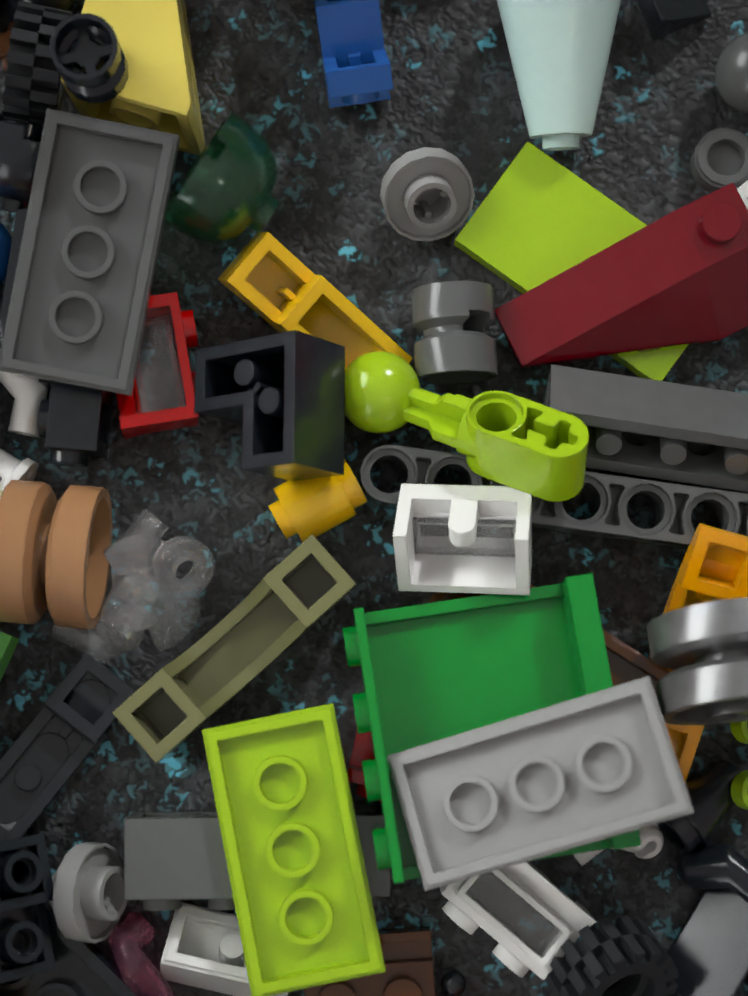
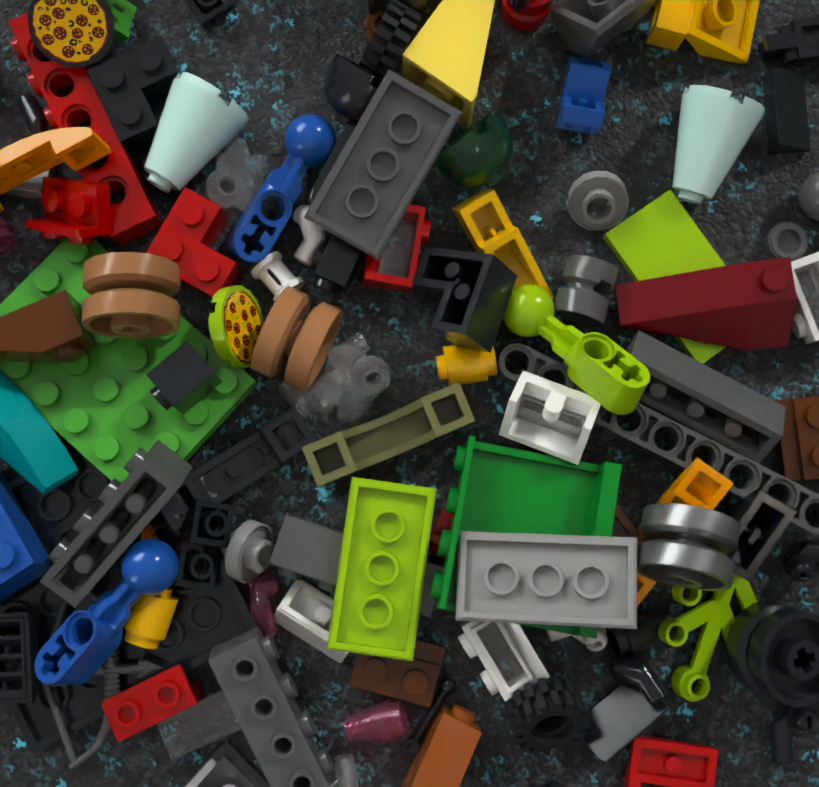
camera: 15 degrees right, 0 degrees up
(82, 44) = (426, 37): black wheel -> none

